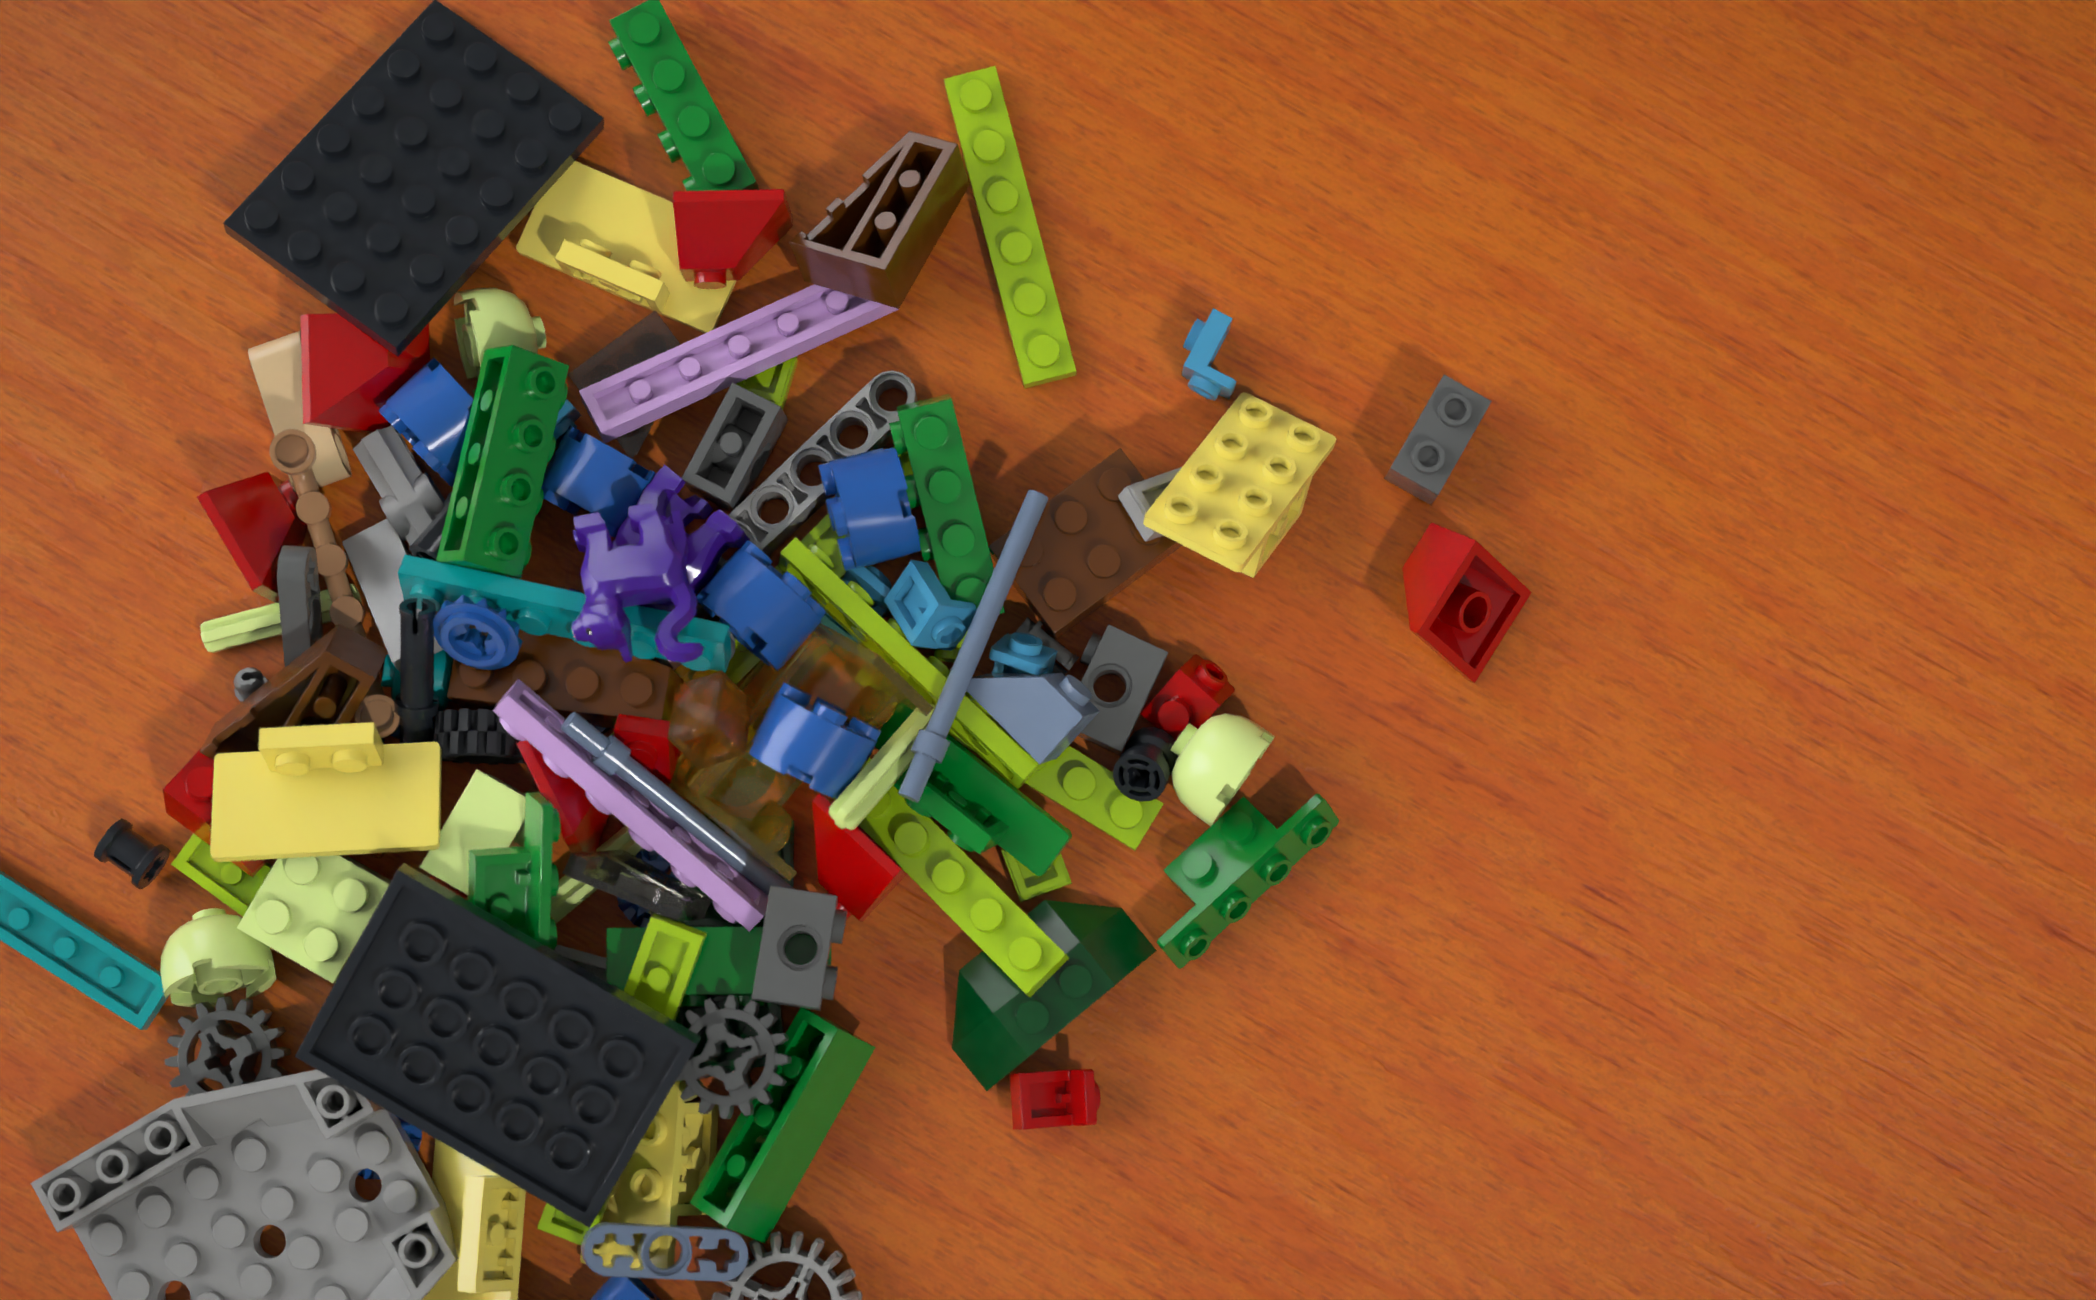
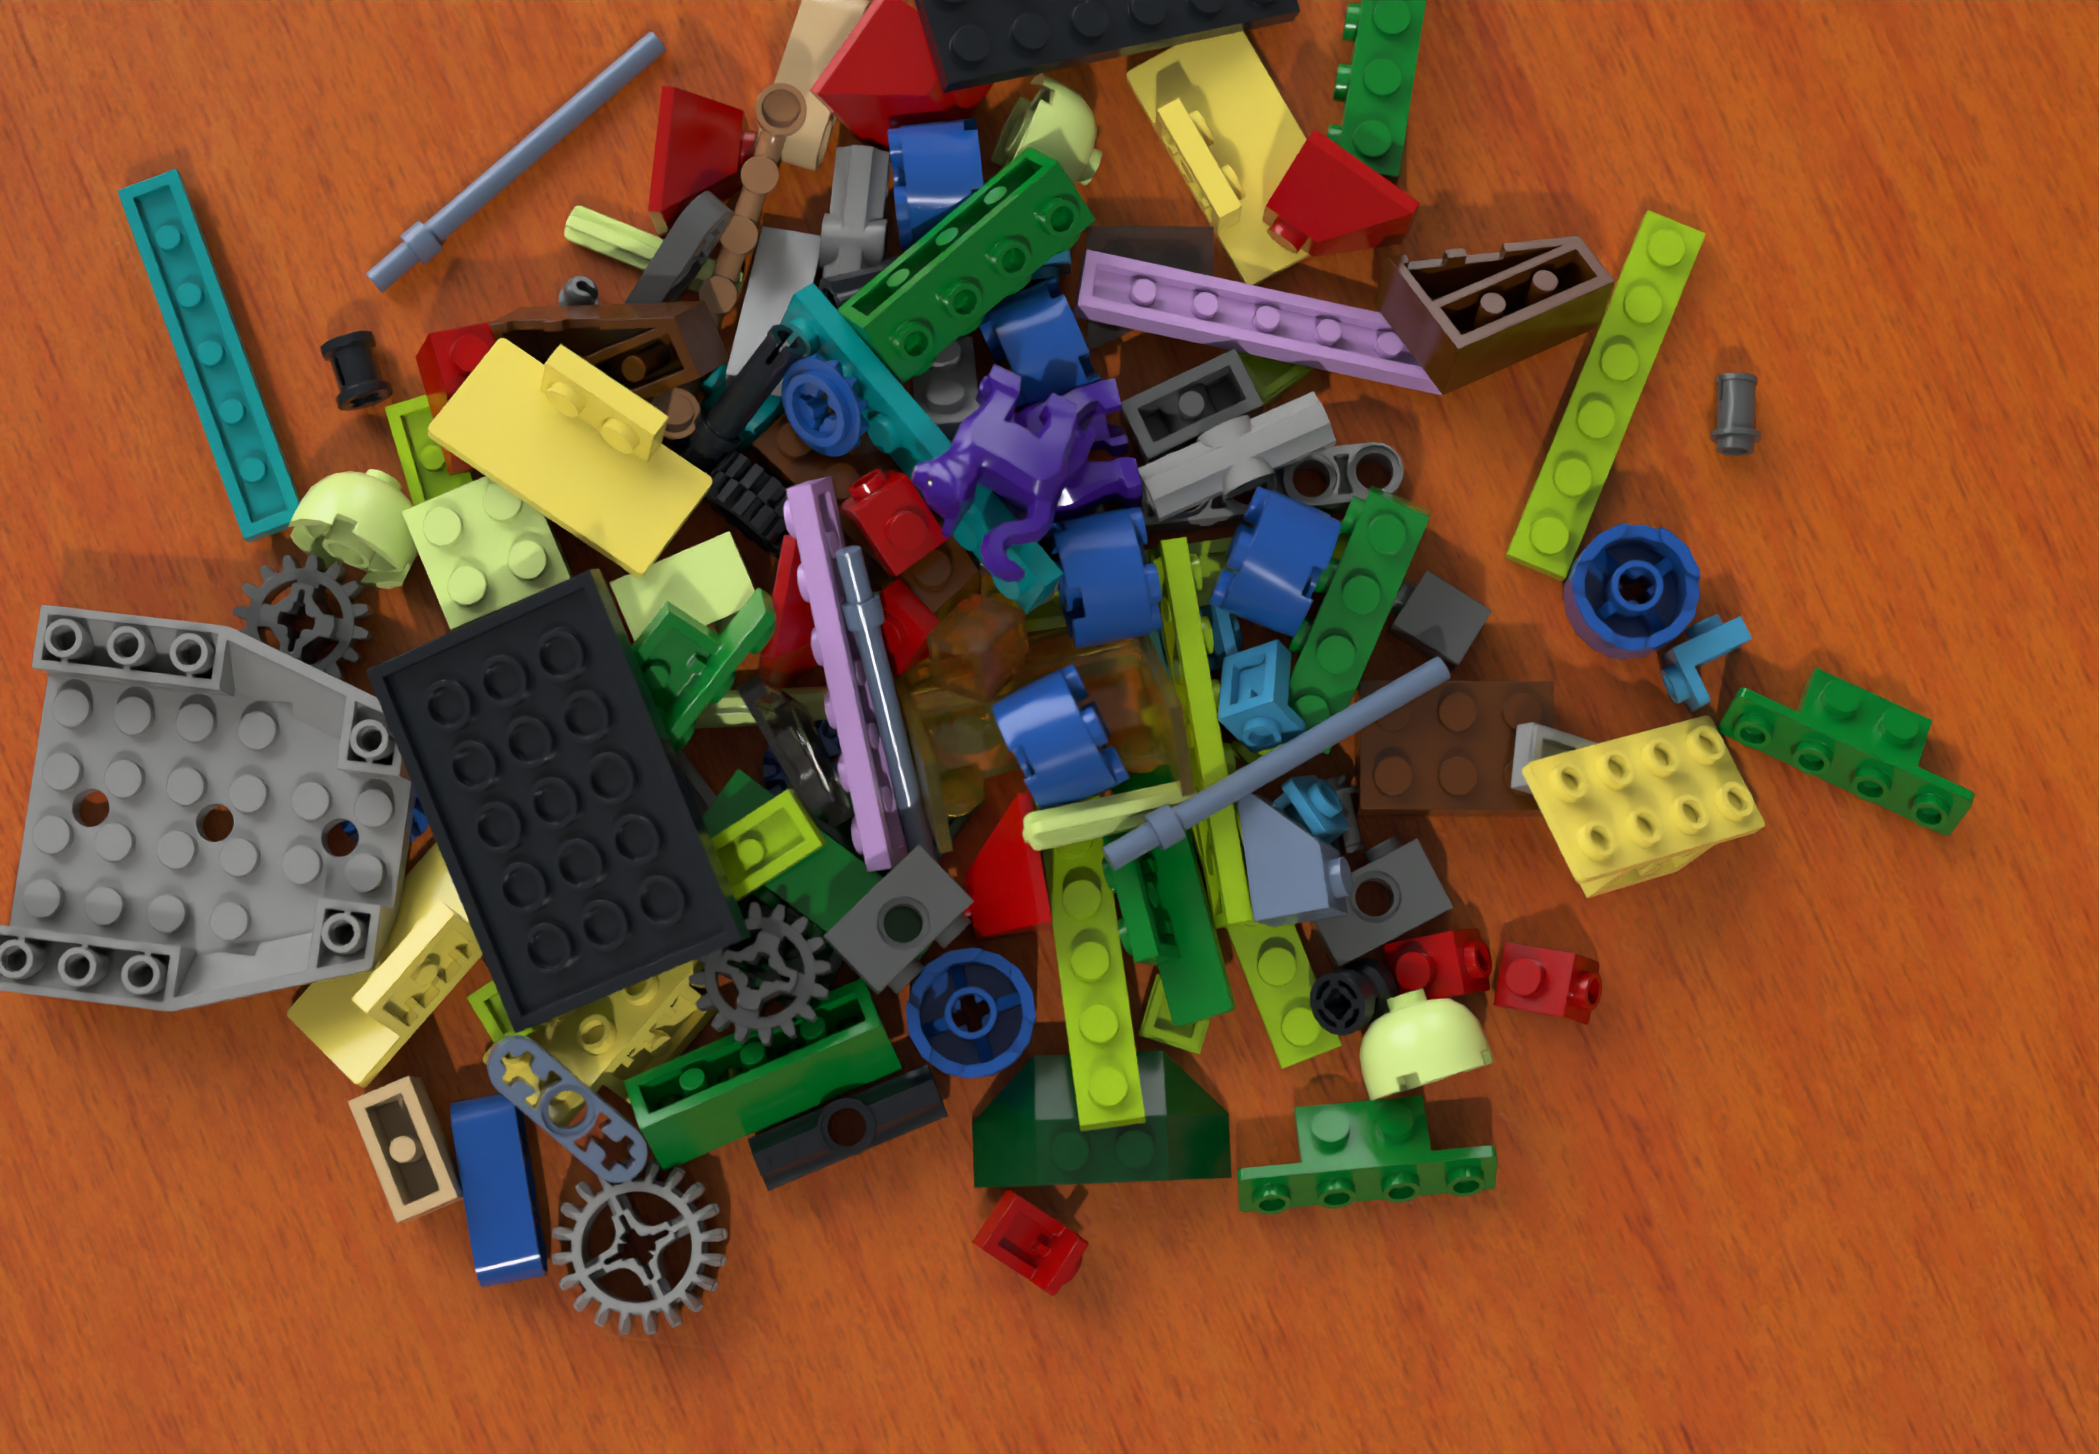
camera: 35 degrees right, 0 degrees up
(112, 728) = (423, 241): none -> sand blue bar
(554, 555) = (949, 386): none -> light grey hinge
(583, 676) = (892, 519): none -> red bracket
(788, 456) = (1236, 456): none -> light grey piece
(848, 1146) = (807, 1141): none -> black piece
(864, 981) = (938, 997): none -> blue brick
(1009, 464) = (1437, 619): none -> dark grey brick
(1108, 174) = (1736, 415): none -> dark grey pin
(1111, 319) = (1632, 554): none -> blue brick
(1271, 655) = (1548, 983): none -> red bracket
(1354, 338) = (1853, 744): none -> green bracket
(1437, 440) = (1860, 899): dark grey brick -> none
(1460, 599) = (1768, 1065): red slope -> none

